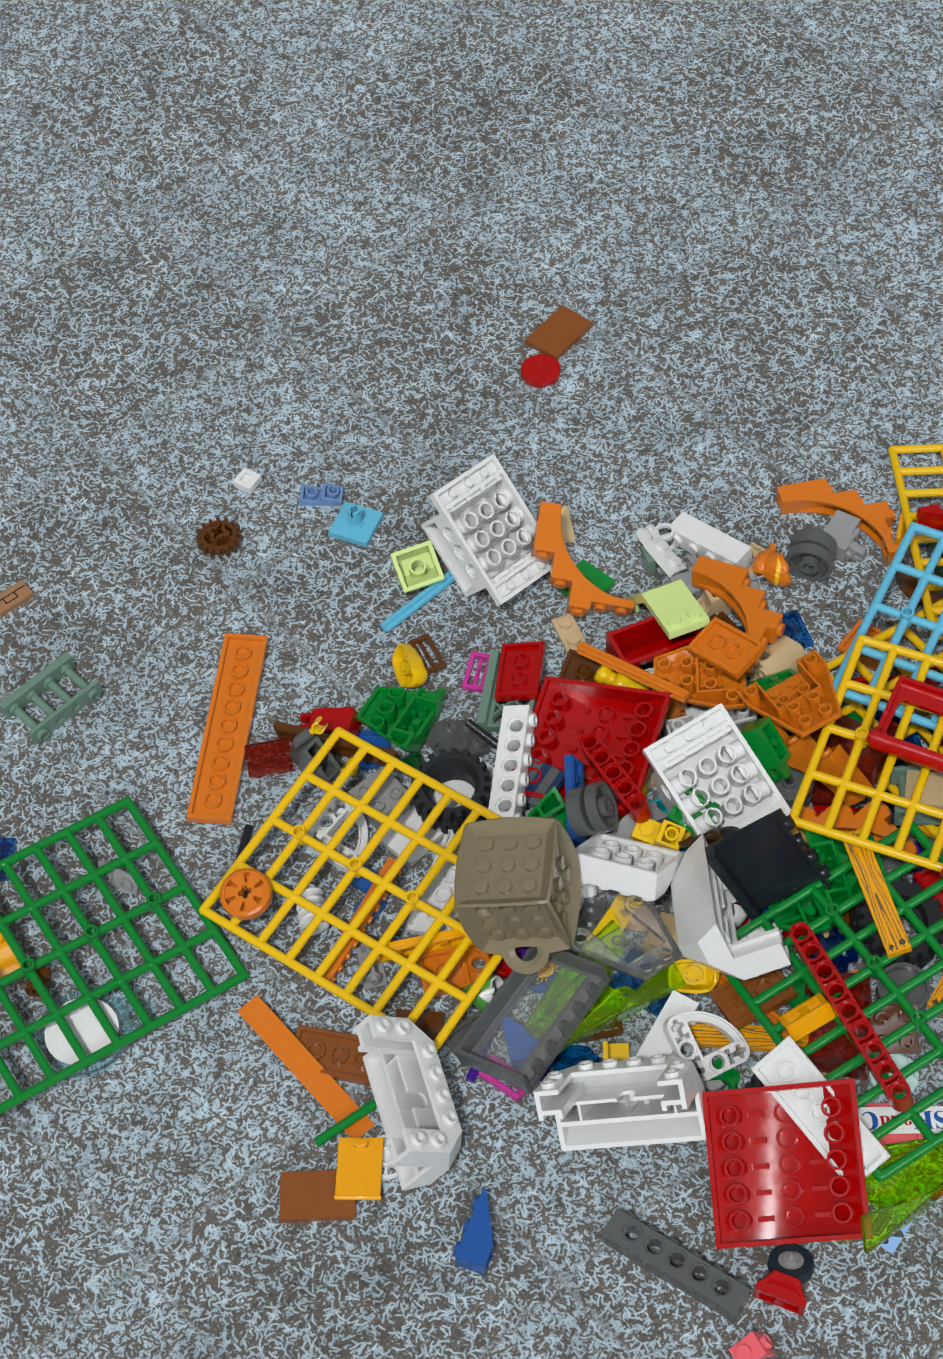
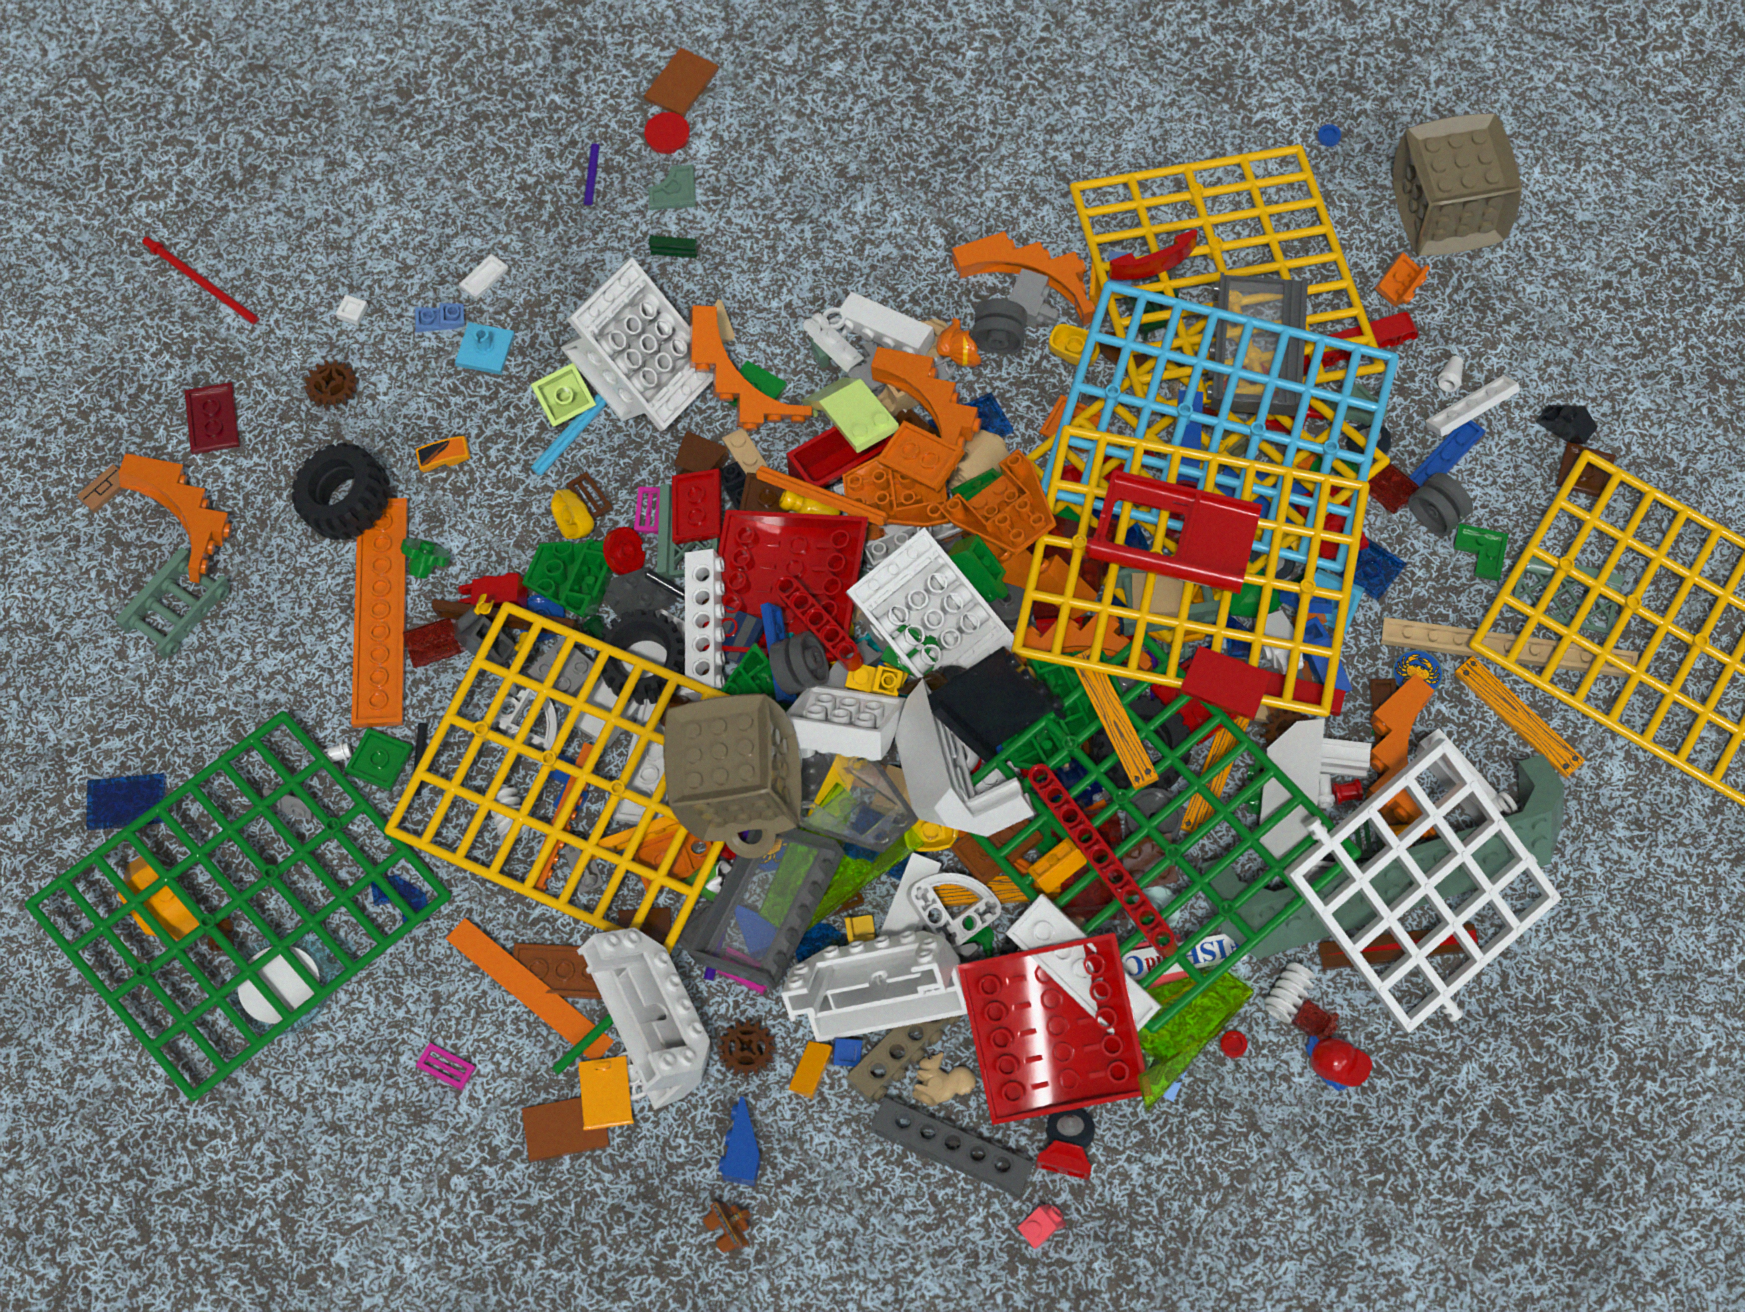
camera: 10 degrees left, 10 degrees up
(80, 619) = (167, 485): none -> orange arch
(93, 415) = (158, 248): none -> red bar
(113, 554) = (212, 418): none -> dark red tile
(171, 840) = (338, 752): none -> white pin
(205, 851) = (379, 760): none -> green plate
(213, 969) = (408, 892): none -> clear blue tile
(222, 637) = (356, 510): none -> black tyre
(233, 1137) = (465, 1077): none -> dark pink tile
(257, 900) = (421, 800): orange wheel -> none
(274, 685) = (424, 556): none -> green plant
(310, 603) = (445, 451): none -> slope
(364, 467) = (483, 276): none -> white tile
(449, 1297) = (733, 1224): none -> dark orange hips
(450, 700) = (623, 550): none -> red tile
(470, 396) = (591, 174): none -> dark purple bar
(498, 1137) = (739, 1056): none -> reddish brown gear
(530, 628) = (699, 454): none -> reddish brown torso
(532, 460) = (673, 246): none -> dark green tile
(541, 417) = (675, 190): none -> sand green tile
(553, 1175) = (811, 1069): none -> light orange slope
(555, 657) = (733, 482): none -> black slope
(588, 1163) = (846, 1052): none -> blue plate
(637, 1158) = (879, 1058): none -> dark tan brick
(672, 1207) = (938, 1085): none -> tan animal
(870, 575) = (1068, 343): none -> yellow piece

